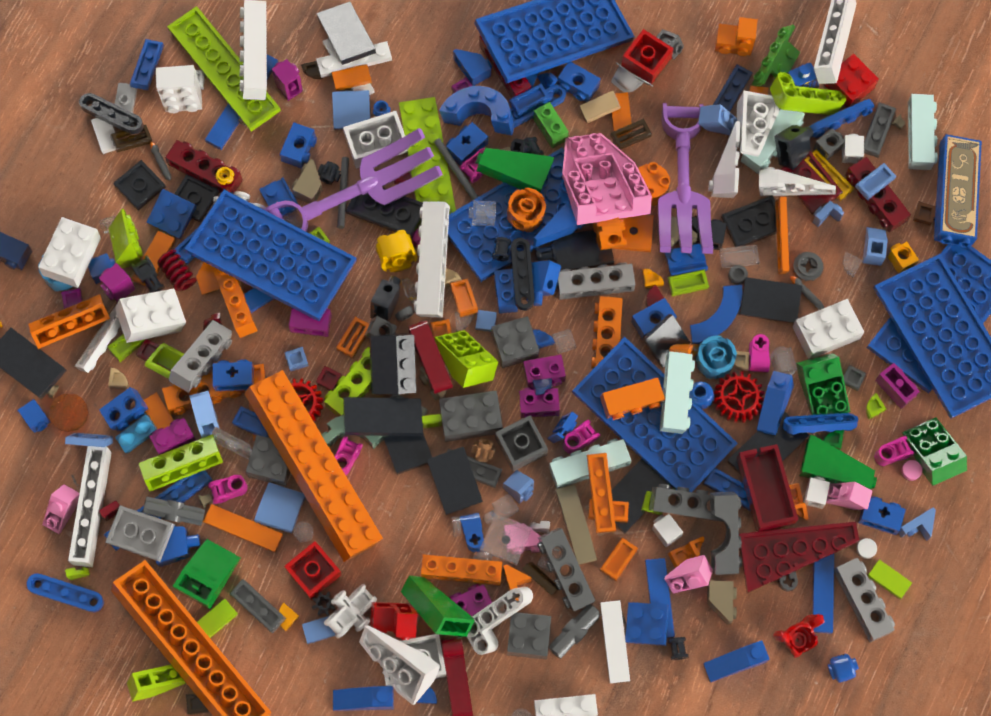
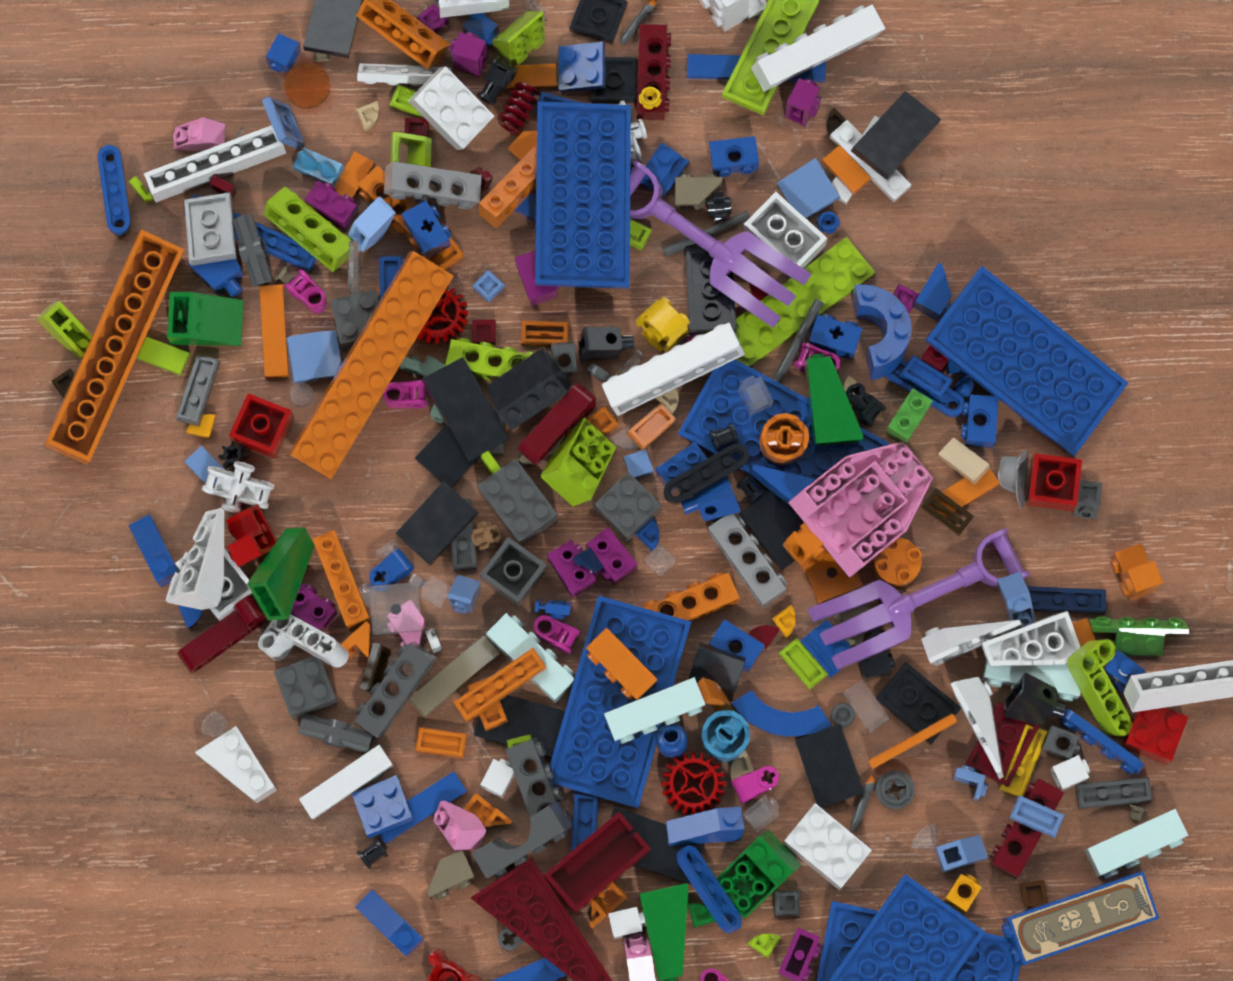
camera: 65 degrees right, 5 degrees up
(122, 405) = (339, 135): blue brick -> none
(293, 218) = (641, 196): clear tile -> none

